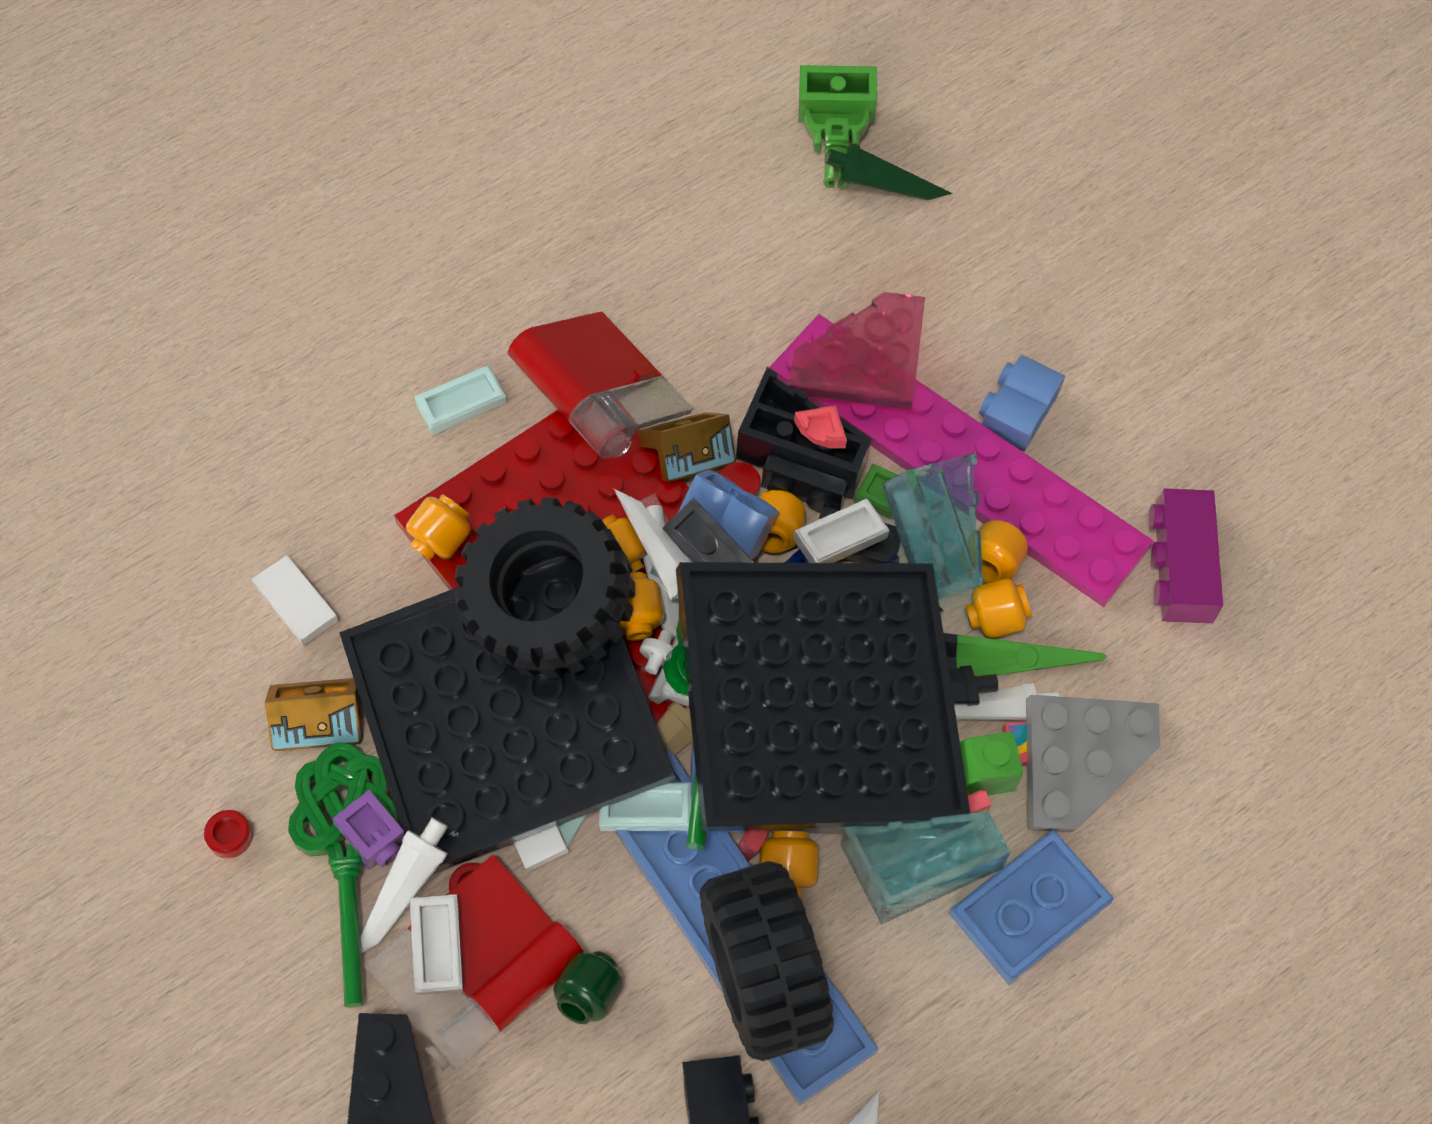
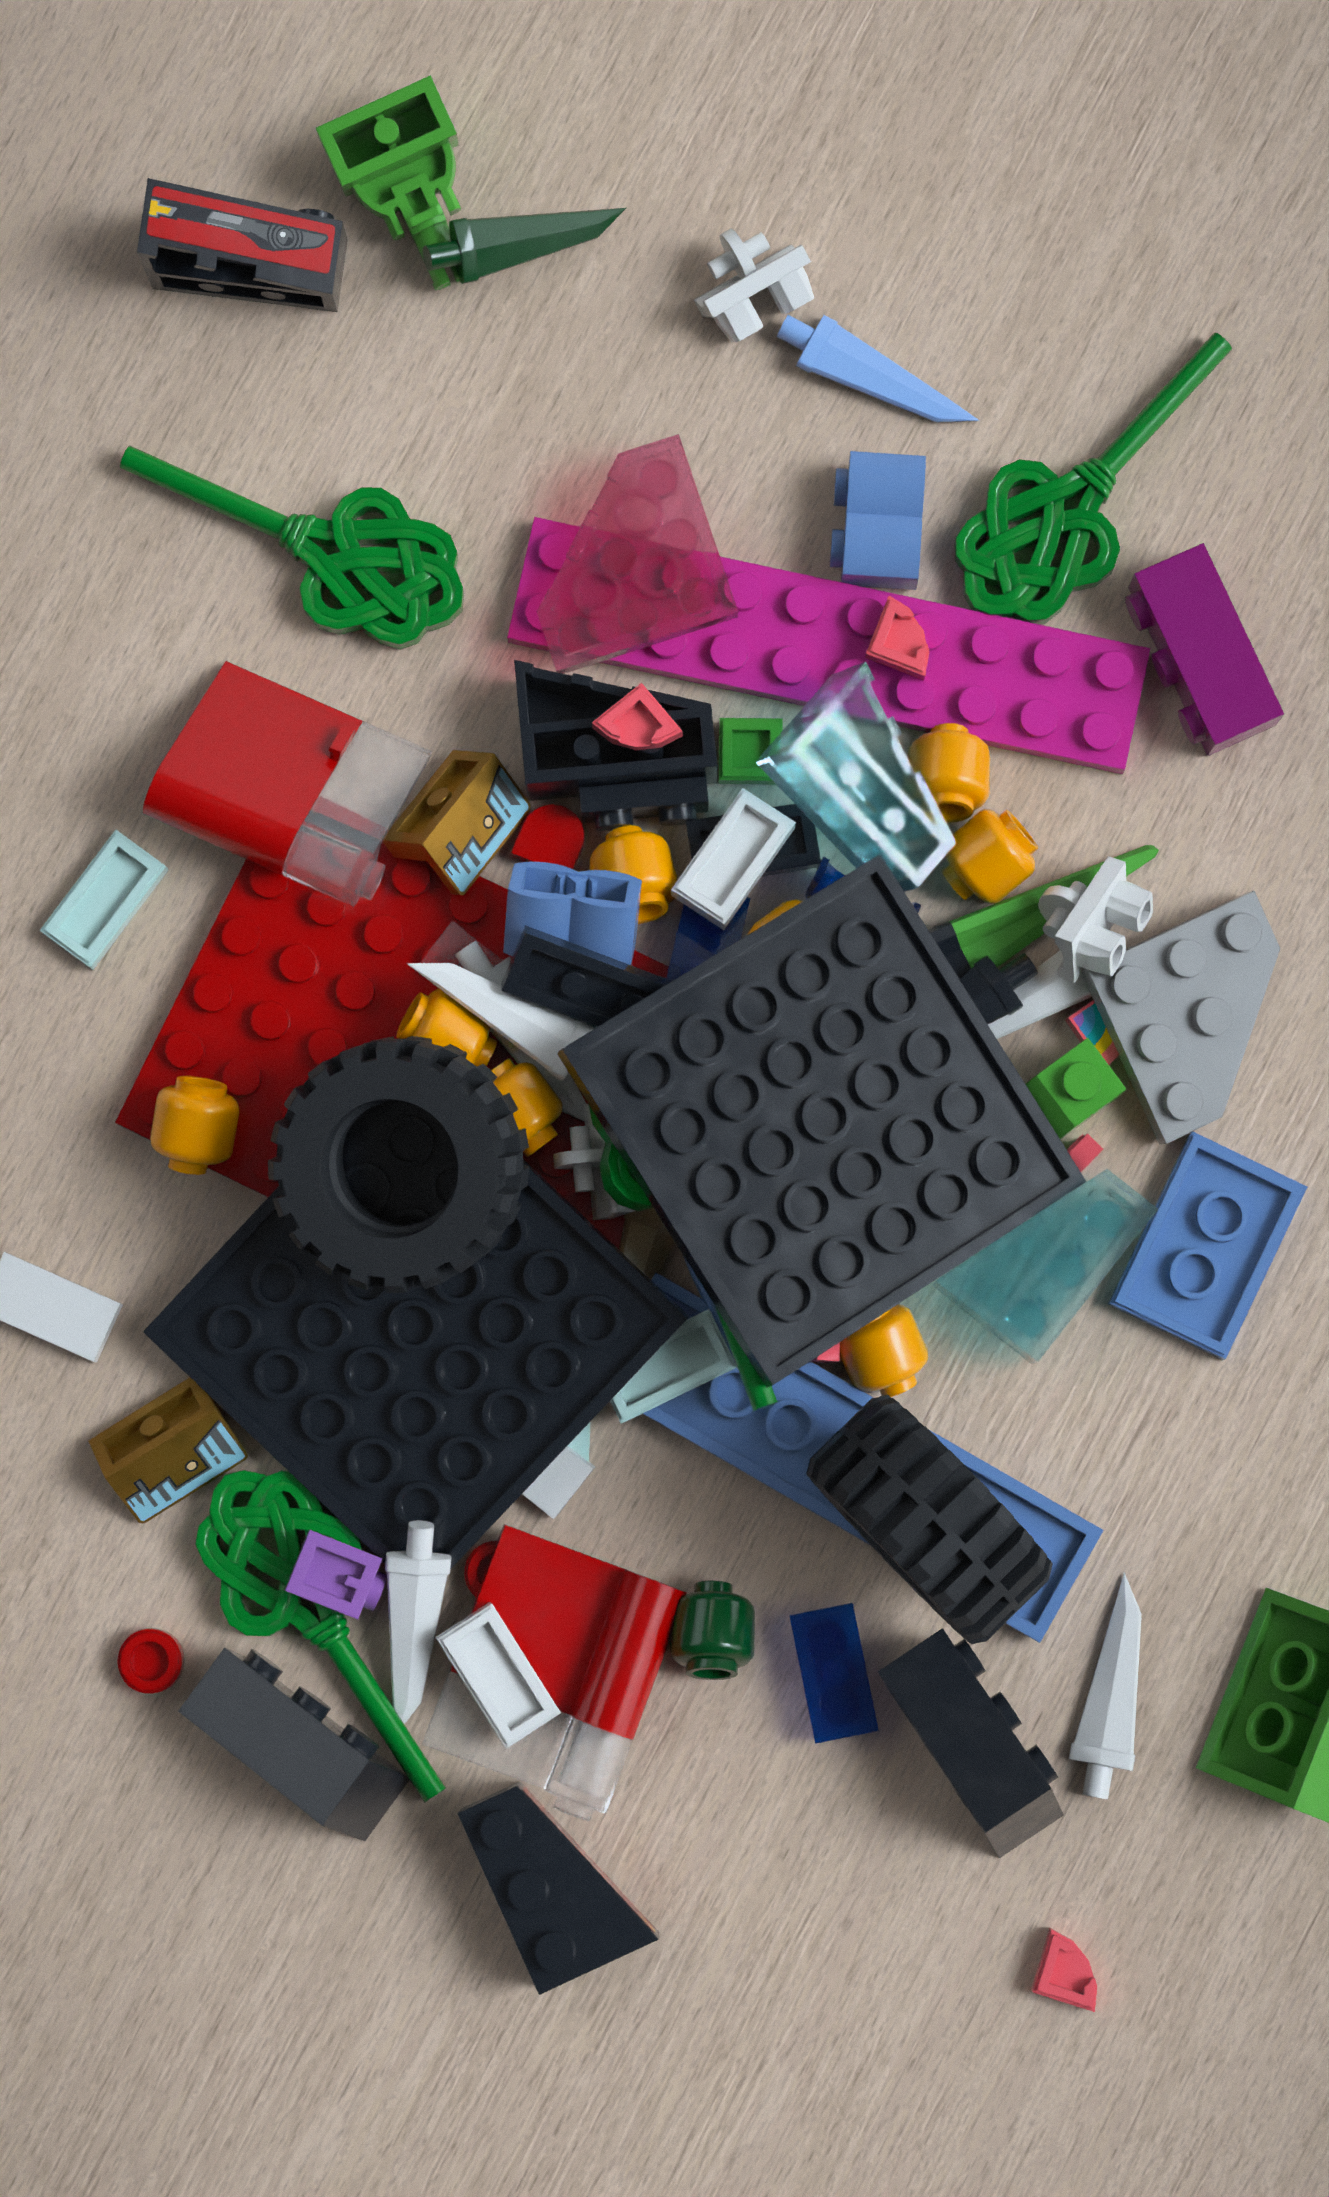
camera: 20 degrees left, 20 degrees up
(283, 925) = (294, 1744): none -> black wedge
(653, 1055) = (833, 1673): none -> clear blue plate
(715, 284) = (299, 533): none -> green piece
(724, 110) = (240, 248): none -> wedge
(989, 254) = (780, 273): none -> white hips
(1001, 464) = (899, 641): none -> coral tile
(1042, 316) = (853, 363): none -> light blue bar
(1049, 668) = (1083, 917): none -> white hips
(1114, 437) = (995, 559): none -> green piece

